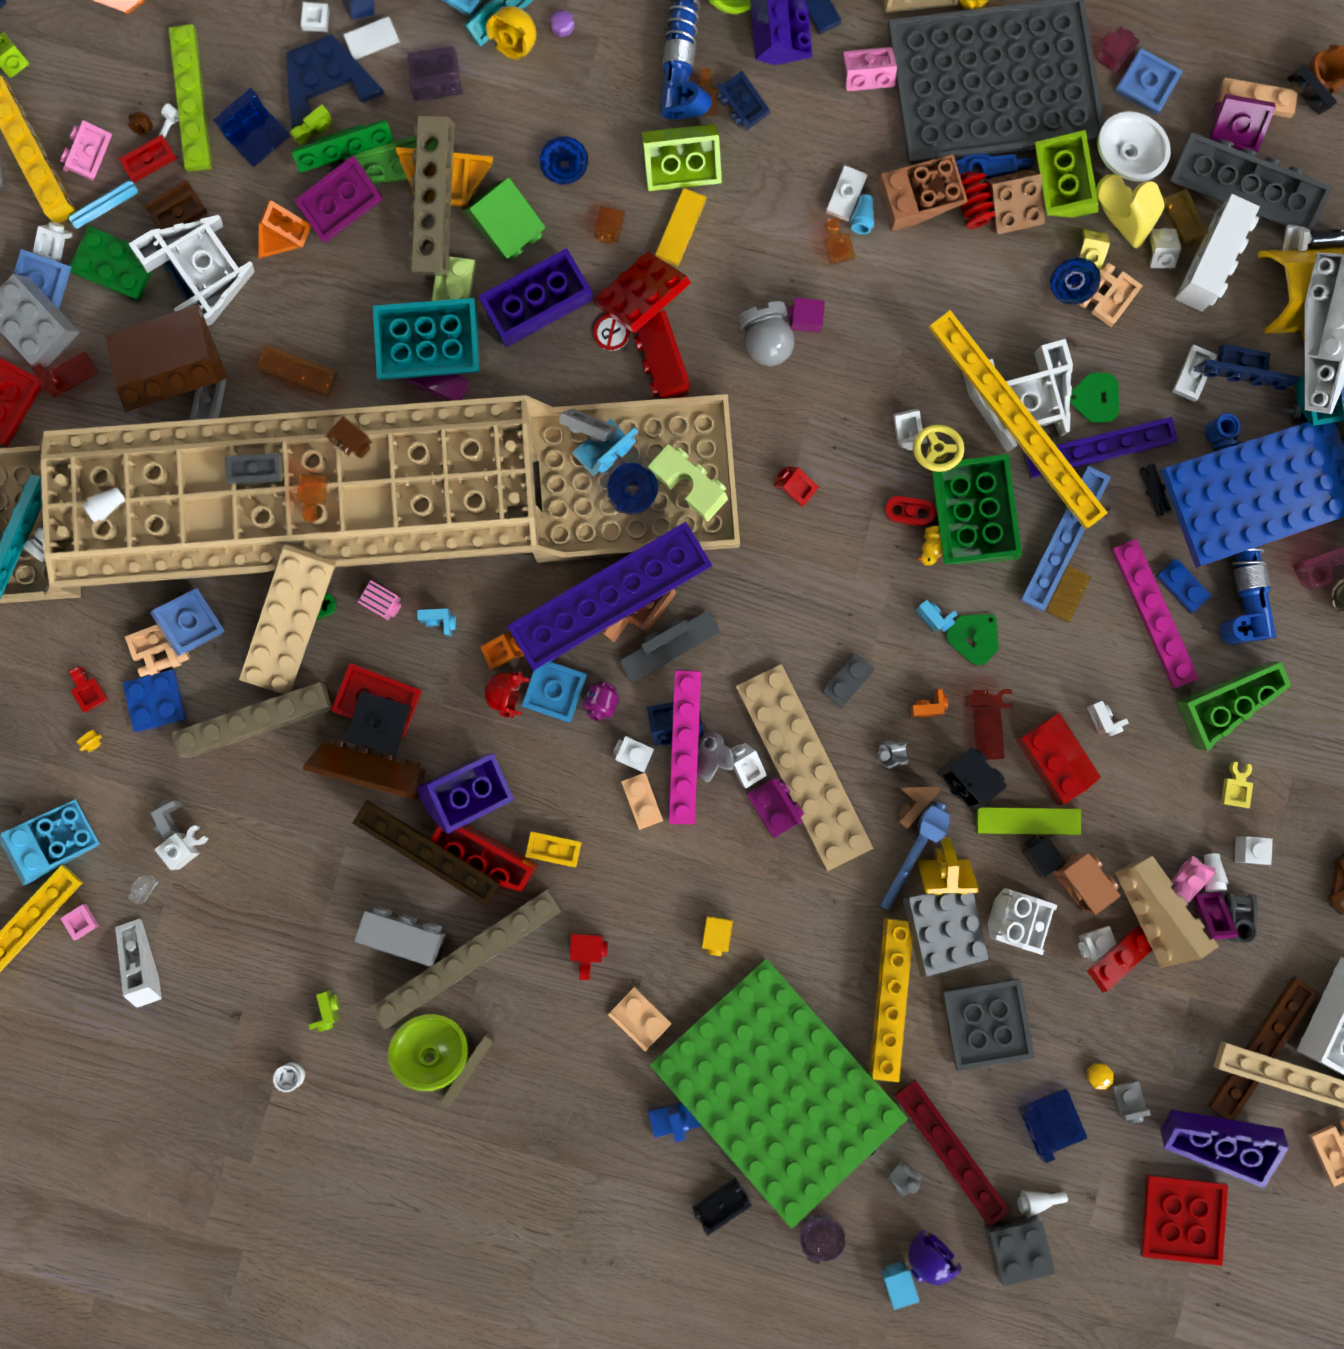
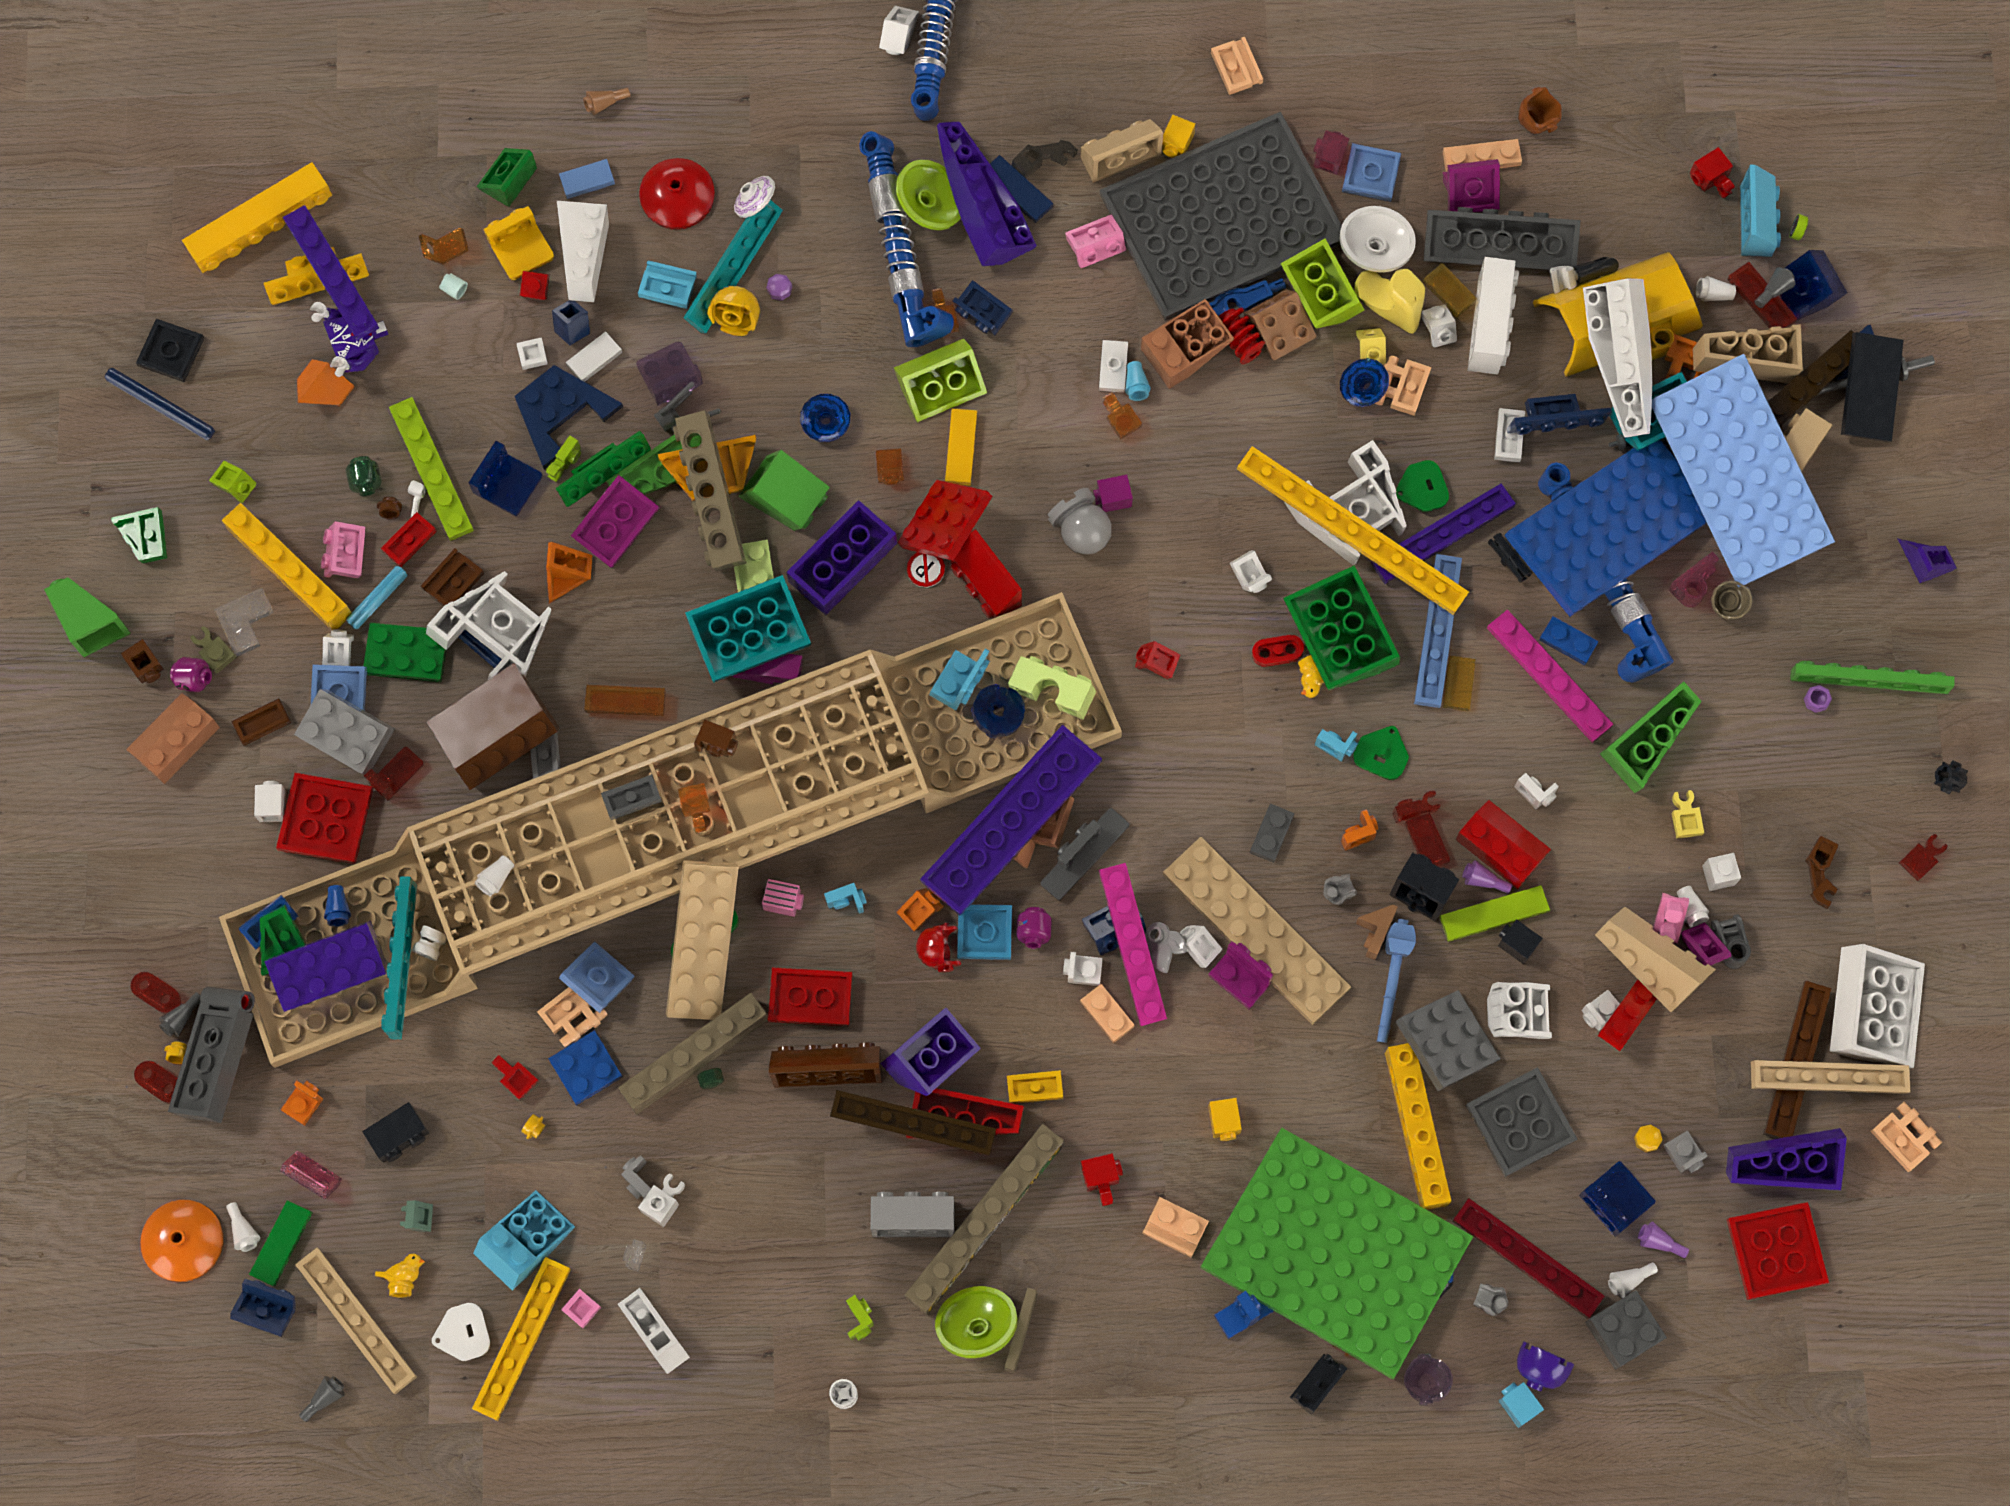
camera: 15 degrees left, 10 degrees down
(125, 85) = (363, 475): none -> clear green head
(262, 748) = (710, 1078): none -> clear green tile
(378, 723) = (820, 1016): black plate -> none
(423, 108) = (667, 414): none -> dark grey plant
(580, 422) = (939, 661): light grey plate -> none
(938, 457) = (1284, 590): light yellow piece -> none
(946, 872) = (1430, 984): yellow bracket -> none
(1026, 782) = (1478, 875): none -> medium lavender cone
(1075, 1171) = (1654, 1237): none -> medium lavender cone
(1087, 883) = (1569, 951): nougat brick -> none
(1311, 89) = (1536, 138): black plate -> none

